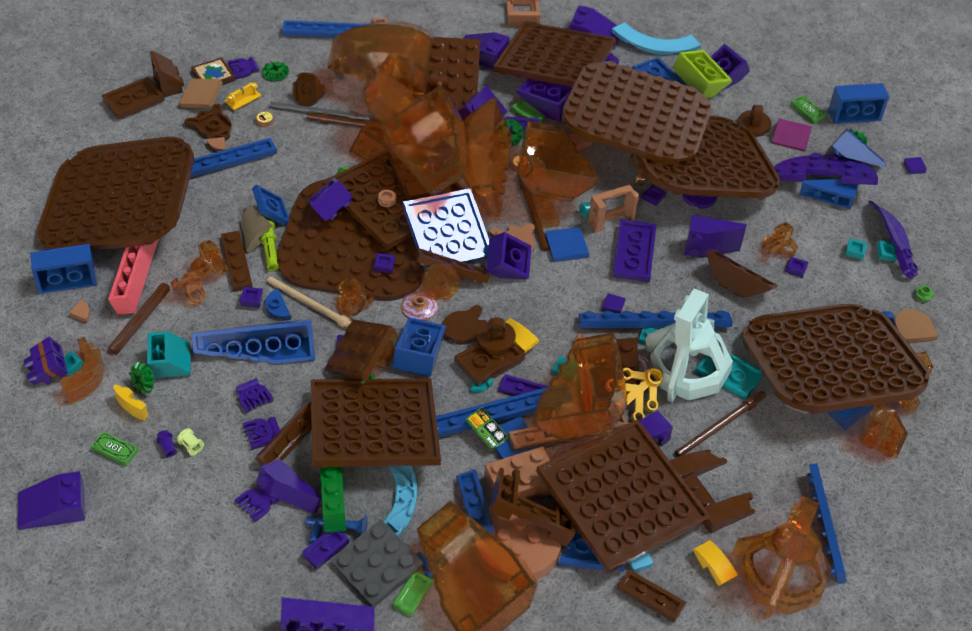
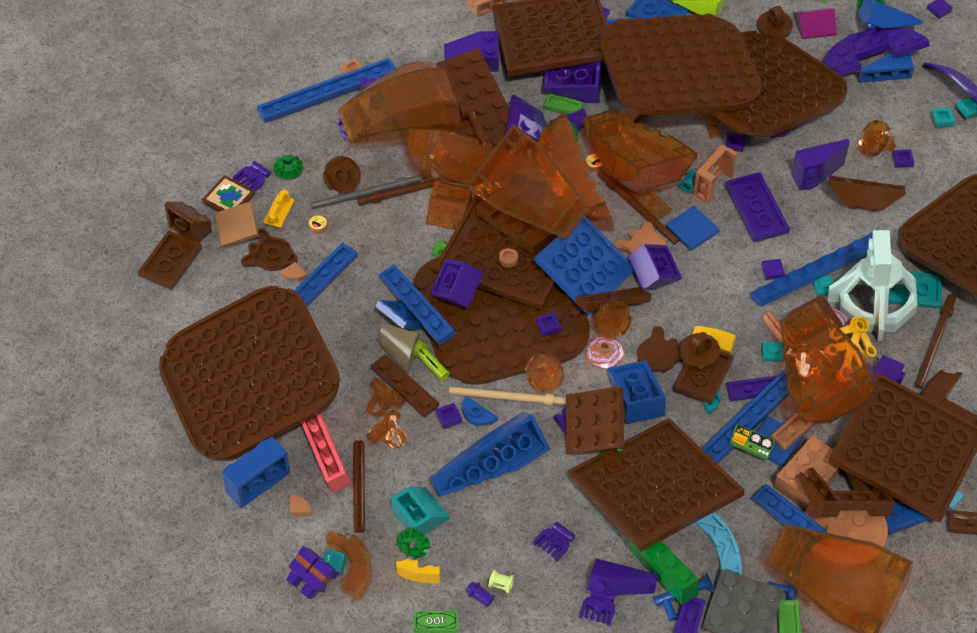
camera: 25 degrees left, 5 degrees up
(251, 392) = (518, 508): dark purple piece -> none
(287, 437) = (584, 534): reddish brown plate -> none
(289, 204) = (417, 304): none -> blue plate
(580, 381) = (810, 361): none -> clear orange tile

